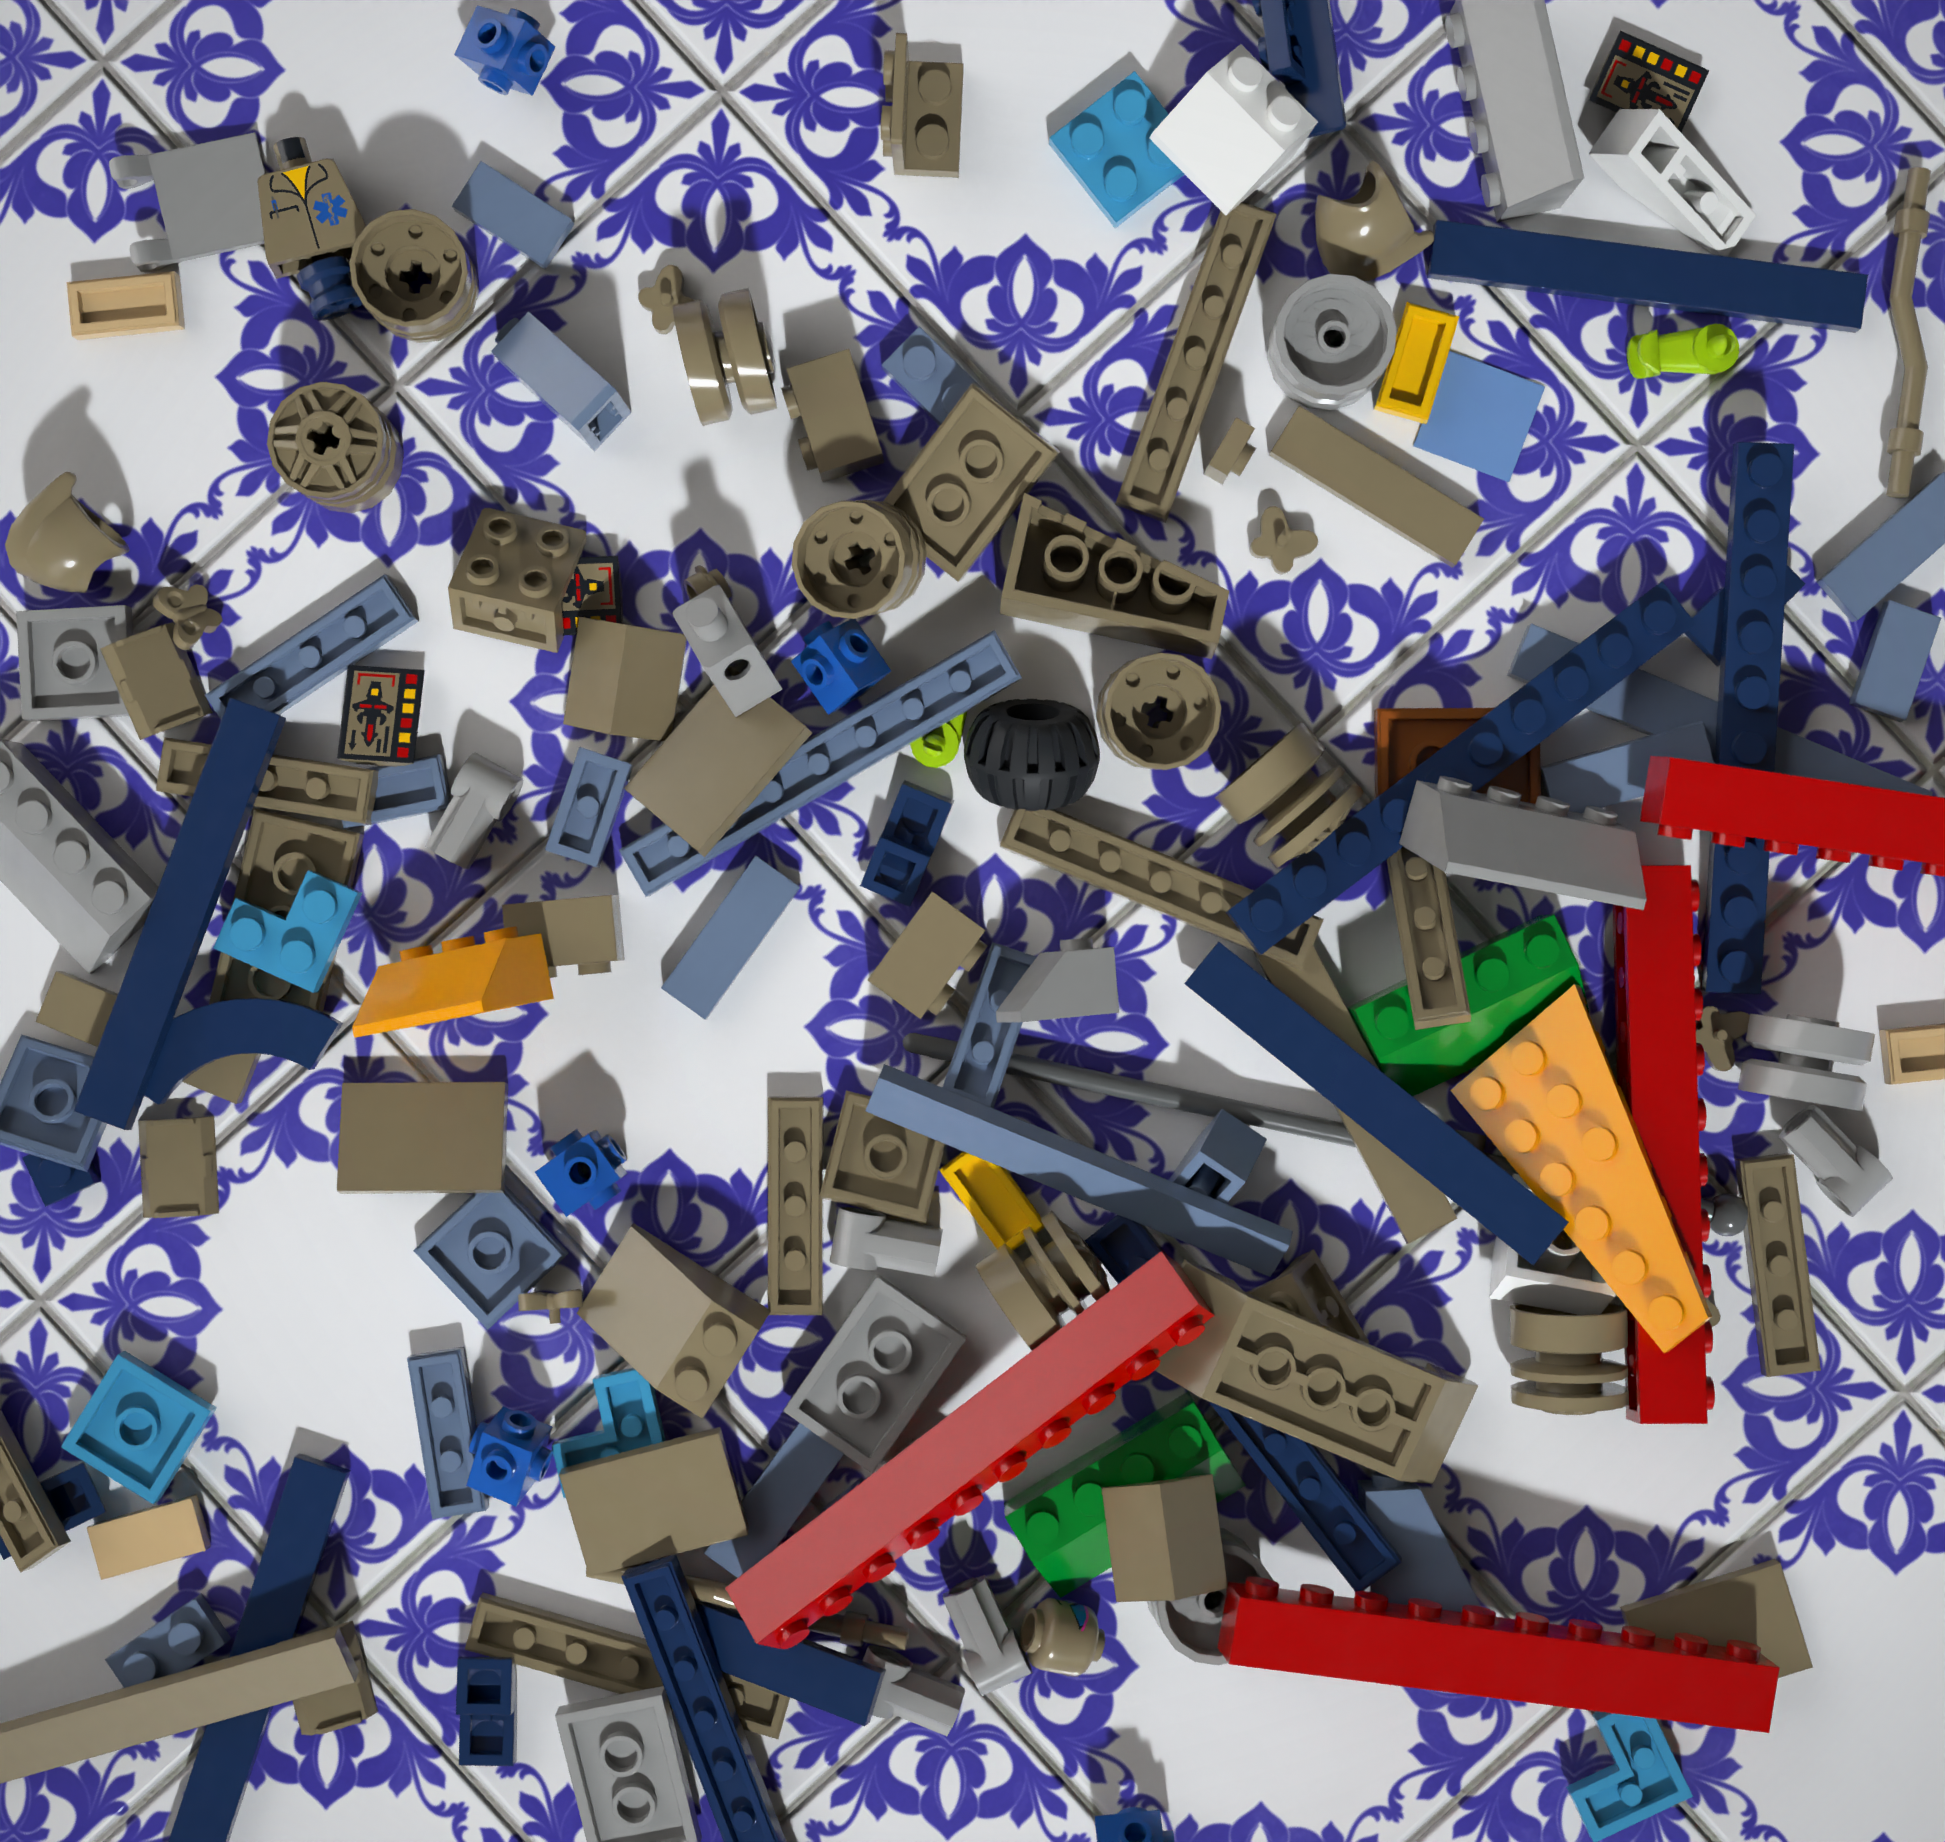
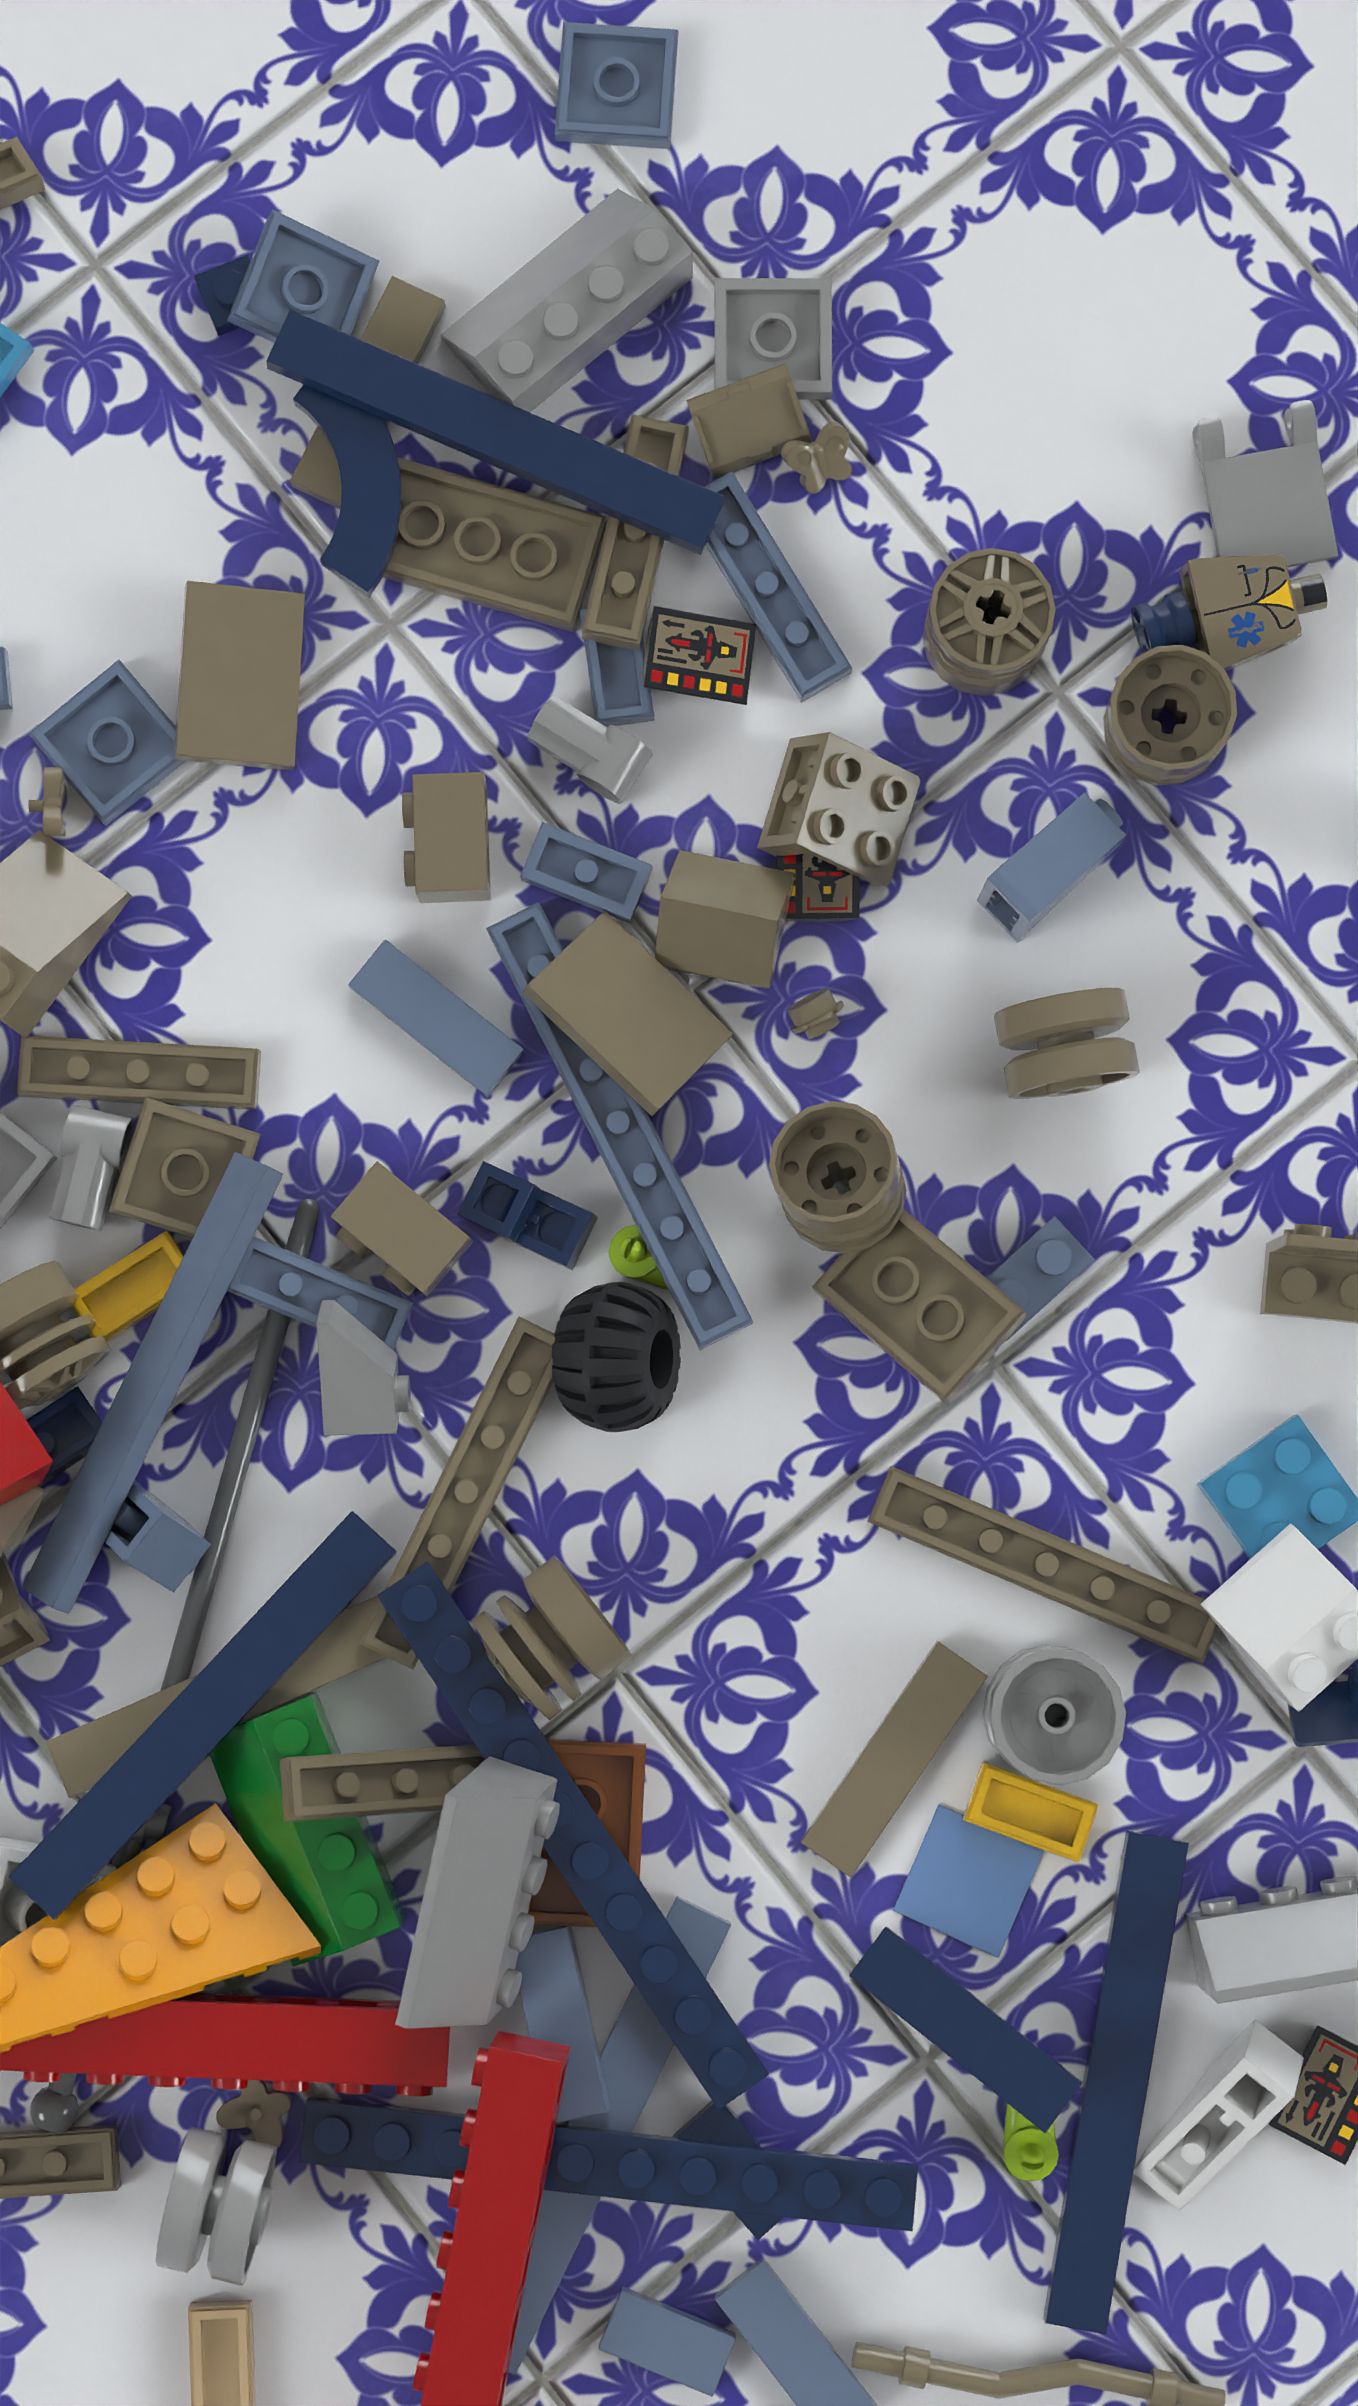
camera: 90 degrees right, 5 degrees down
(60, 539) = (903, 329): dark tan piece -> none
(125, 305) = (1156, 410): tan tile -> none
(178, 1167) = (227, 417): dark tan piece -> none
(294, 946) = (454, 551): dark azure plate -> none
(455, 983) = (399, 716): light orange slope -> none
(513, 215) = (1237, 826): sand blue tile -> none
(566, 1180) = (180, 827): blue brick -> none
(662, 297) = (1140, 986): dark tan piece -> none
(718, 640) = (759, 1022): light grey torso -> none
(834, 416) = (999, 1159): dark tan brick -> none
(839, 664) = (725, 1150): blue brick -> none
(1106, 586) = (796, 1444): dark tan wedge -> none
(1185, 696) = (620, 1512): dark tan wheel -> none
(1232, 453) = (938, 1598): dark tan plate -> none
(1280, 542) = (837, 1648): dark tan piece -> none
(1368, 231) = (1177, 1761): dark tan piece -> none
(1612, 408) = (966, 2029): none -> dark blue tile
(1844, 1170) = (96, 2245): light grey piece -> none

